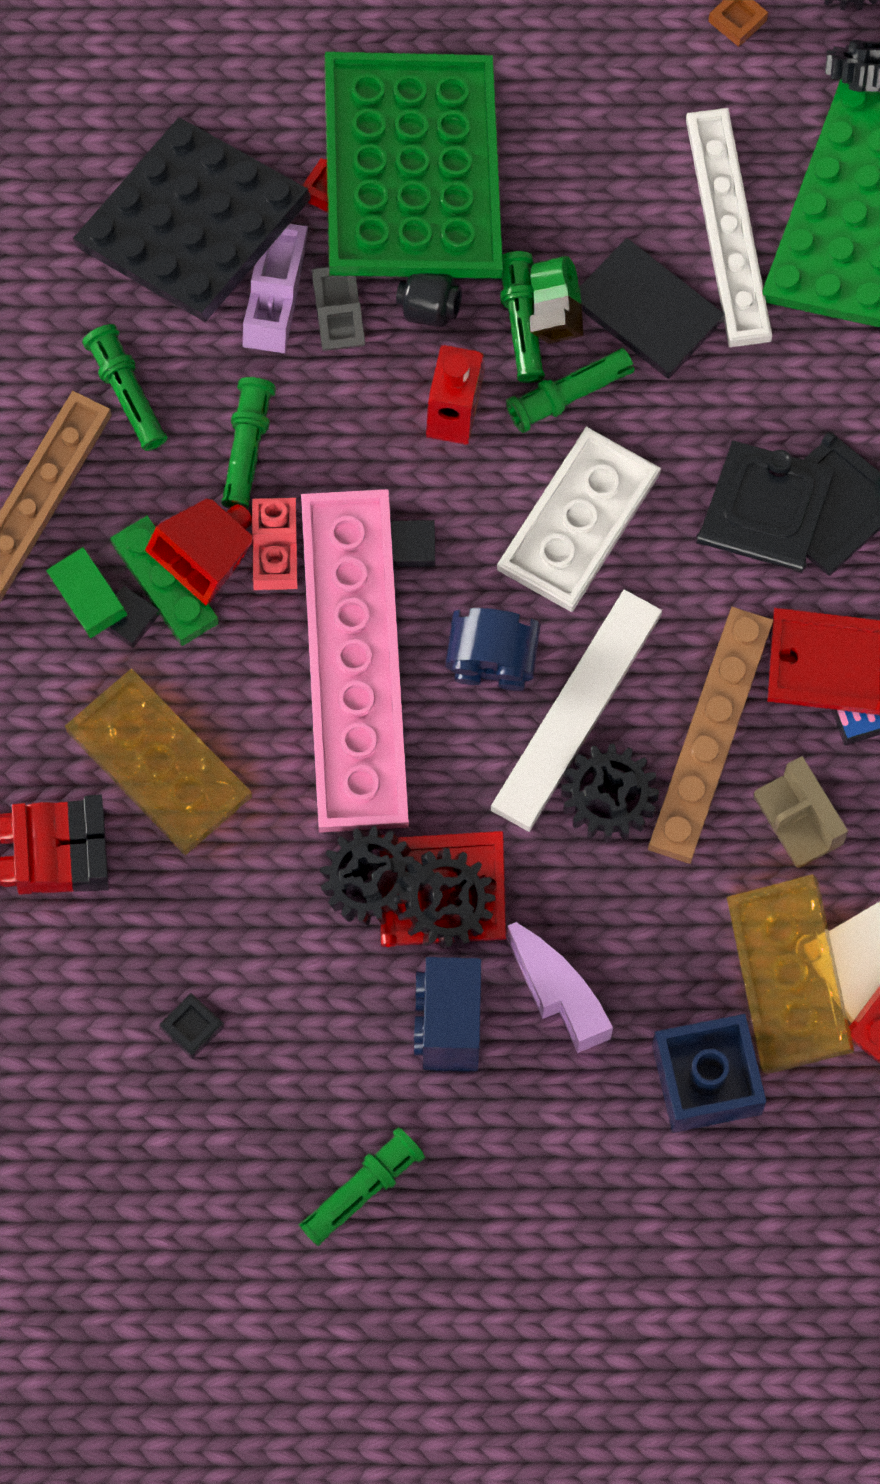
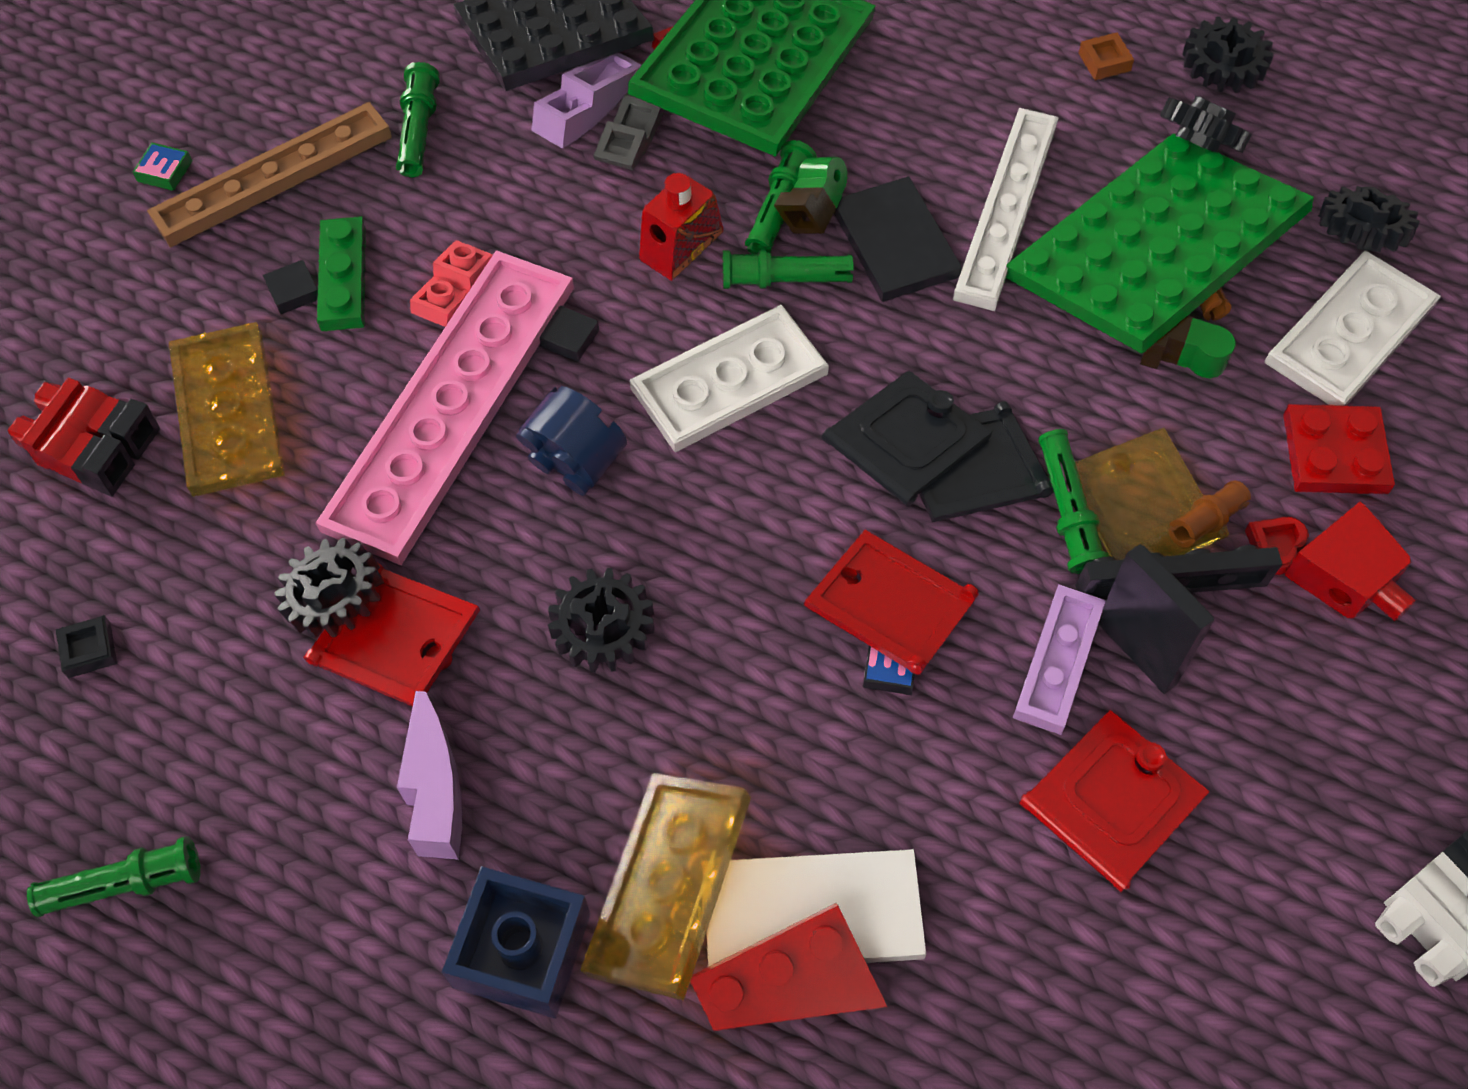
camera: 30 degrees right, 10 degrees down
(86, 592) = (267, 251): green tile -> none
(202, 546) = (383, 252): red torso -> none
(249, 425) = (494, 186): green pin -> none
(429, 298) = (707, 151): black head -> none
(432, 885) = (353, 640): black gear -> none
(451, 1020) = (303, 747): dark blue brick -> none
(576, 710) = (620, 535): white tile -> none
(710, 735) = (731, 617): medium nougat plate -> none
(801, 814) = (777, 731): dark tan panel -> none

